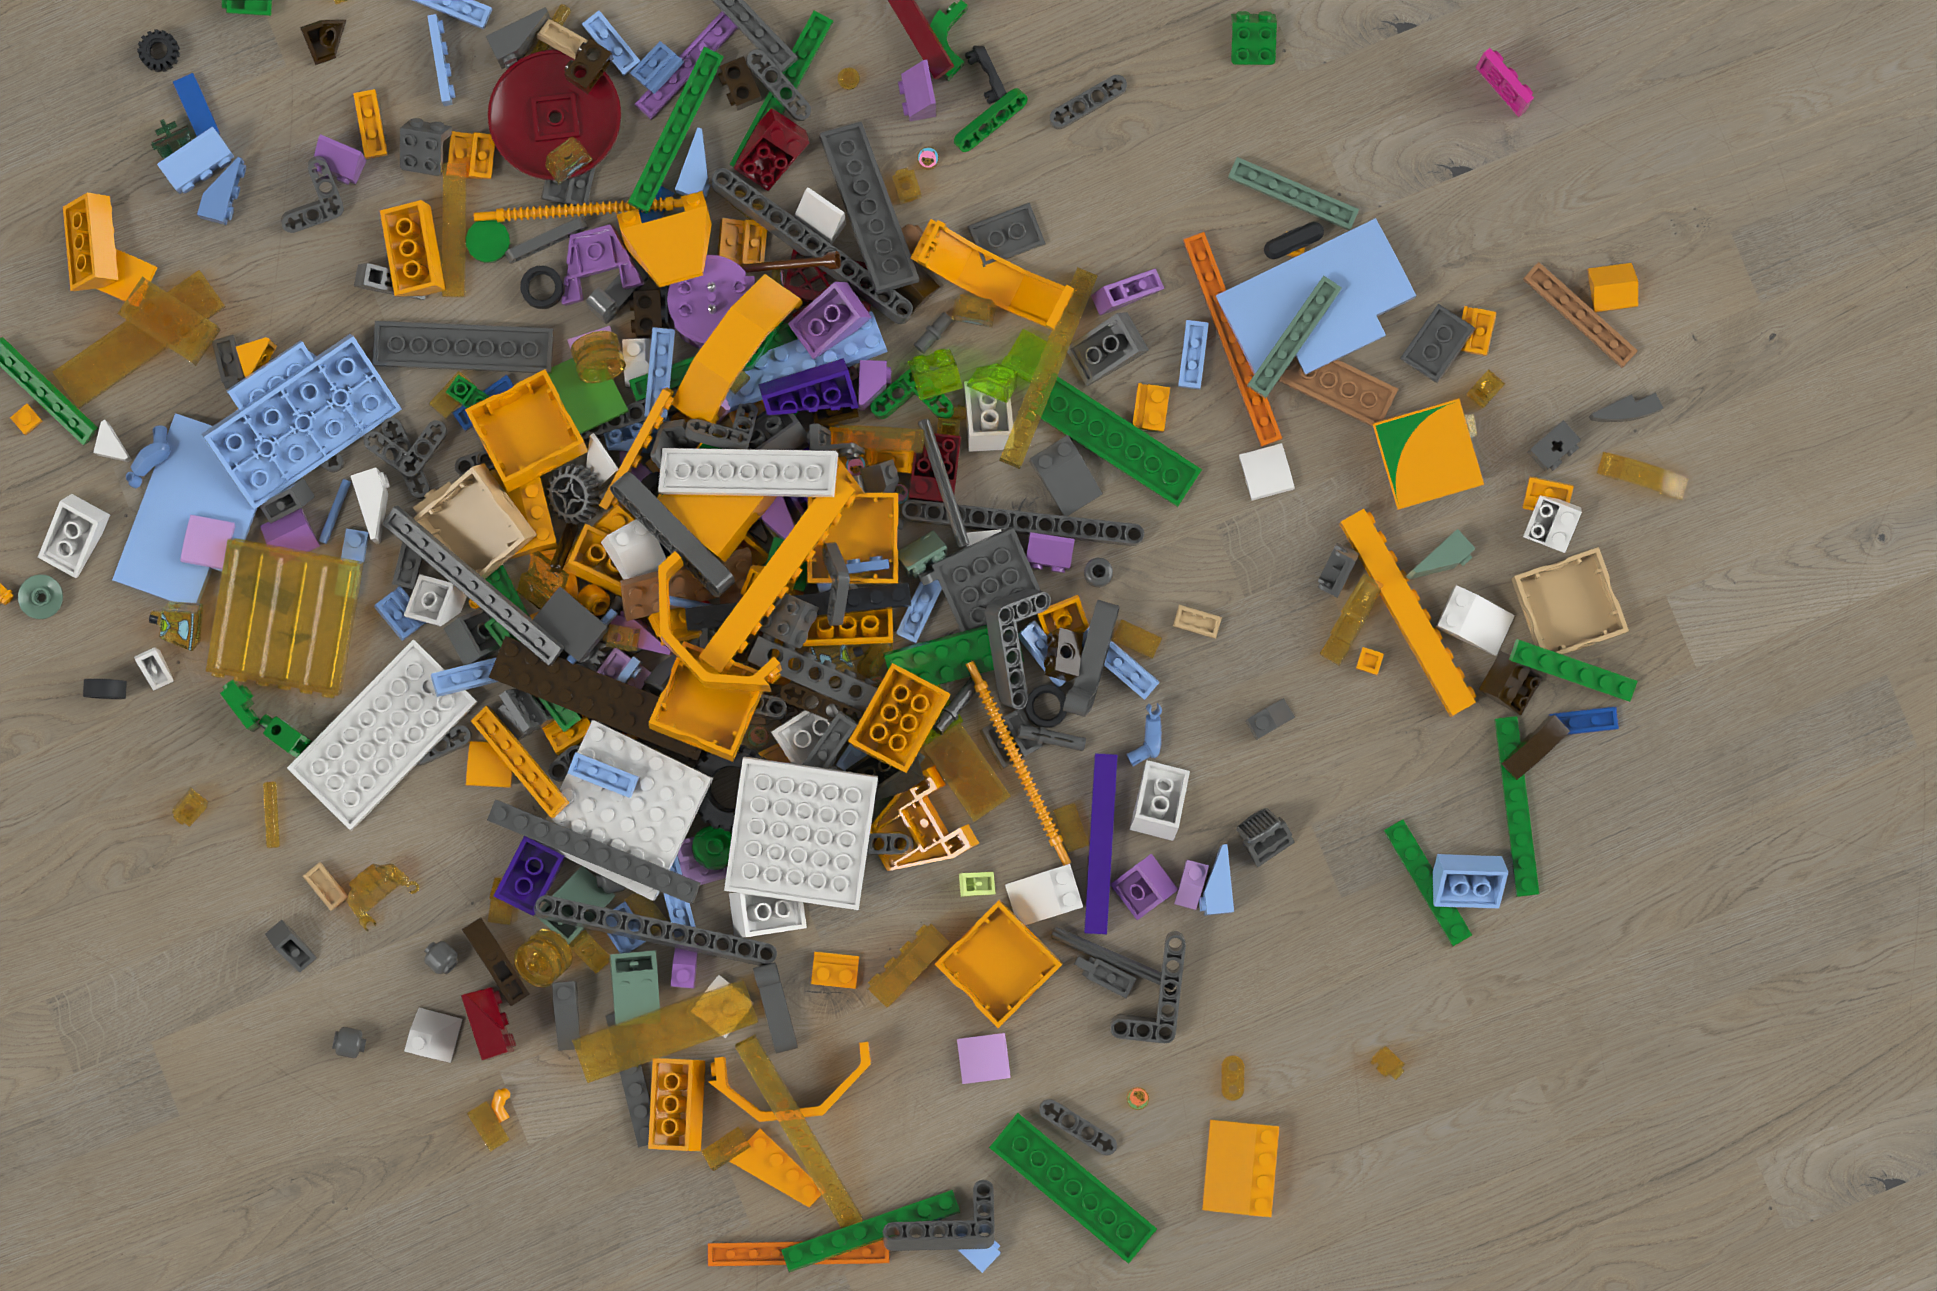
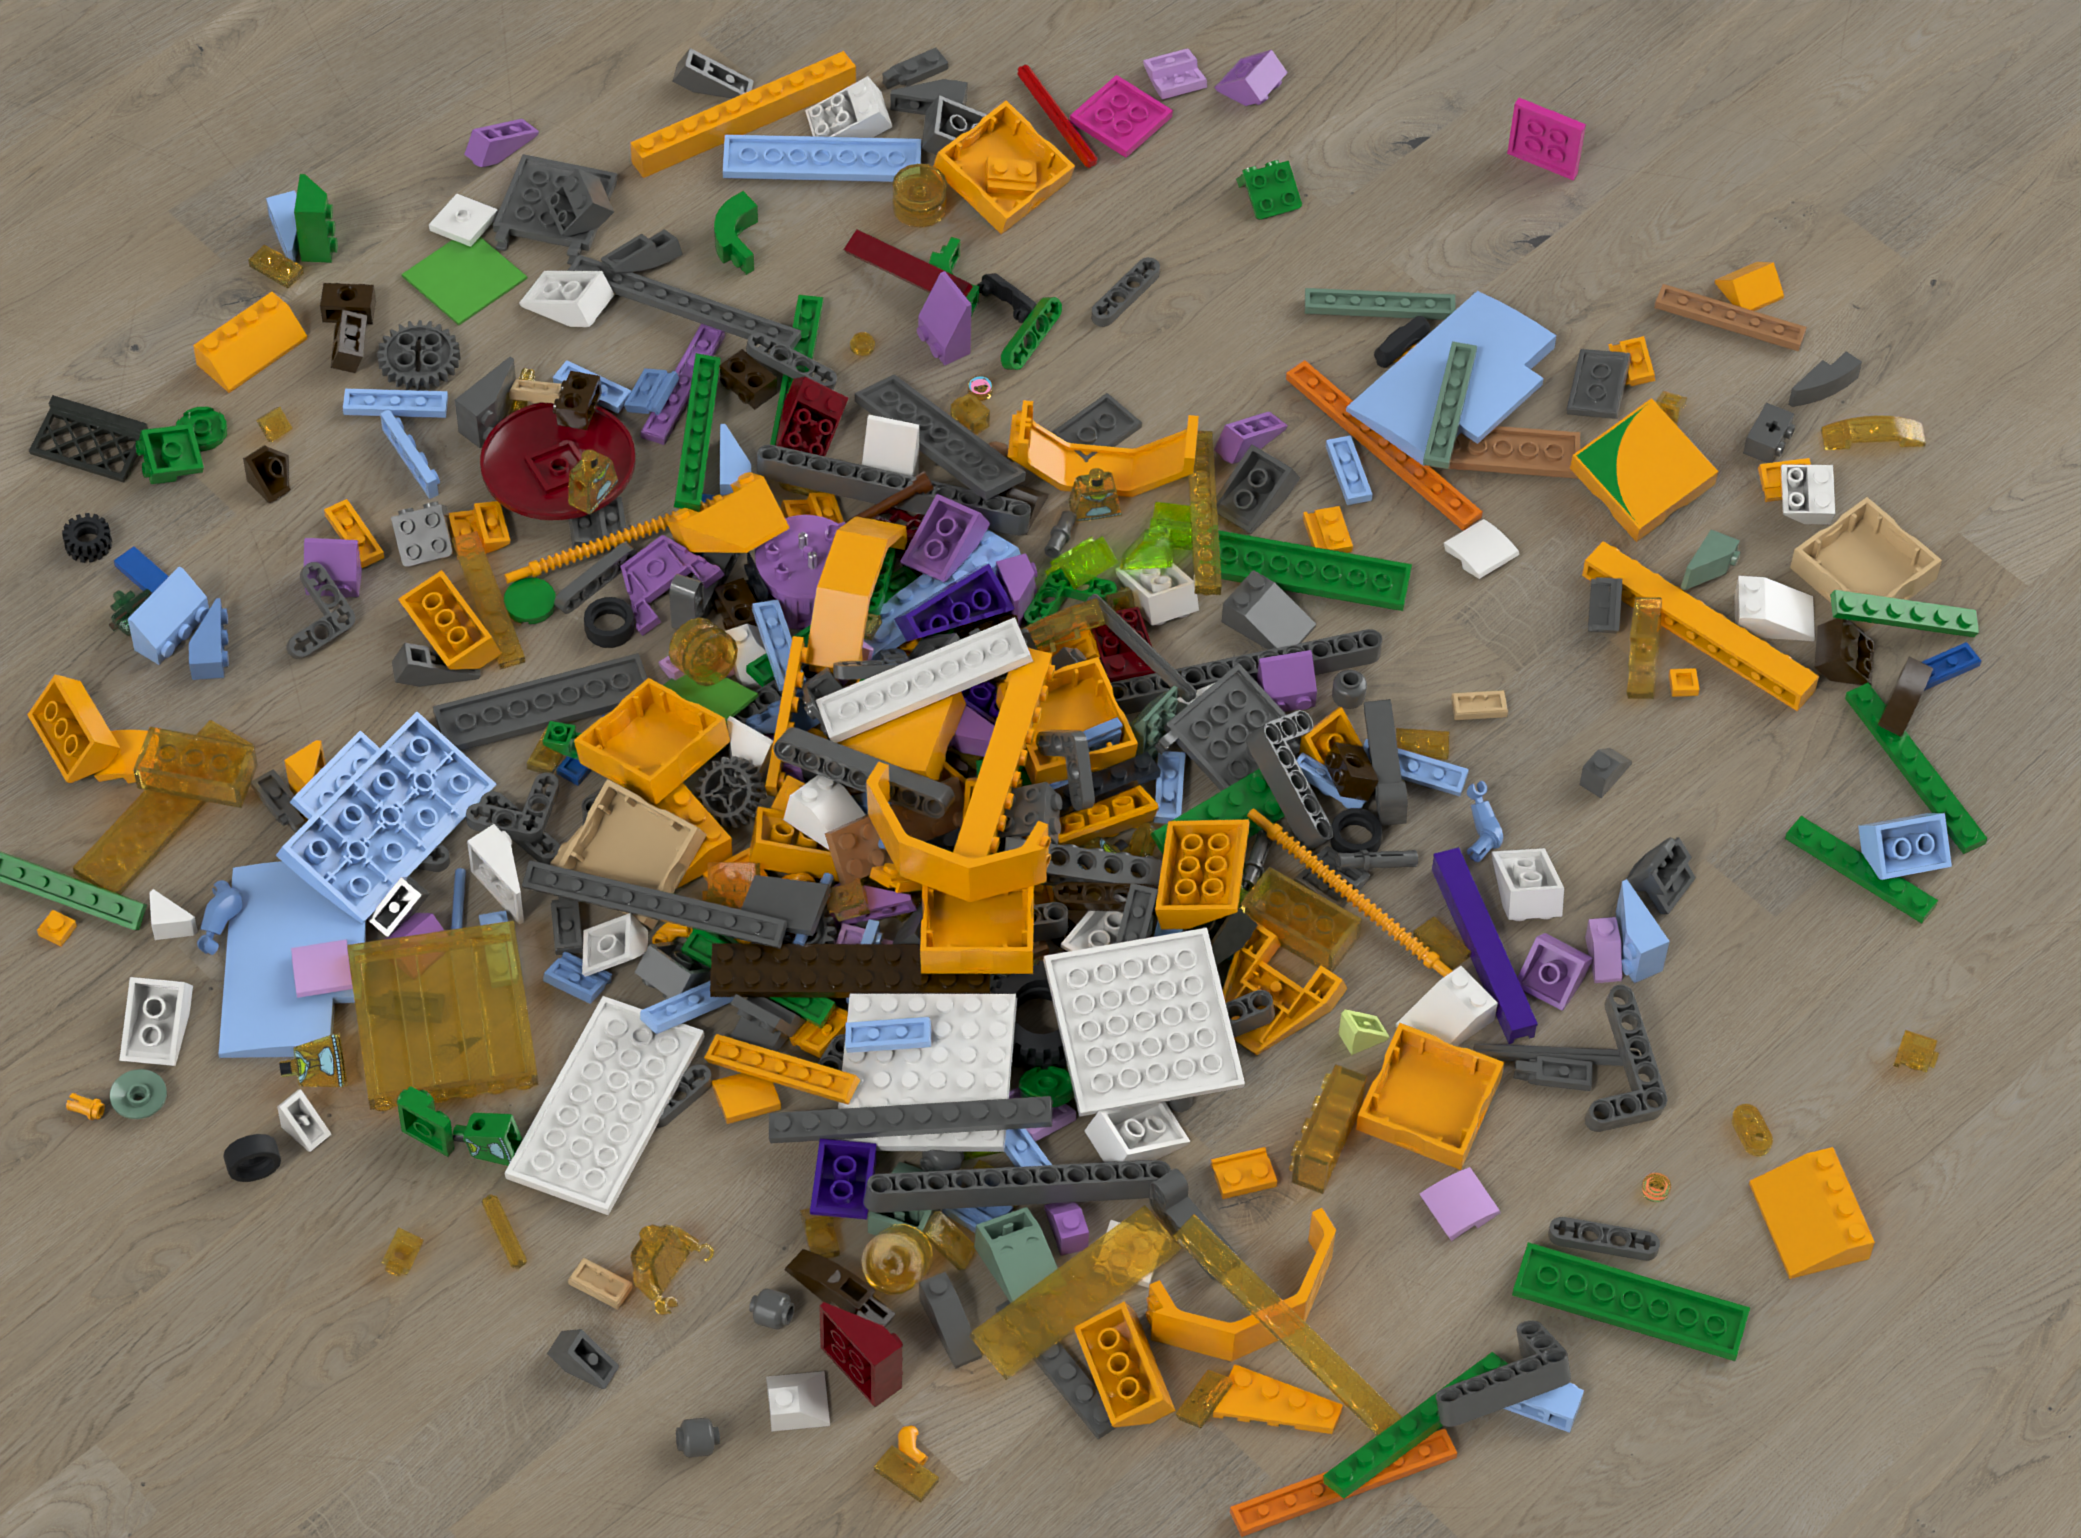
camera: 20 degrees left, 30 degrees down
(564, 547) = (741, 845): dark brown axle -> none

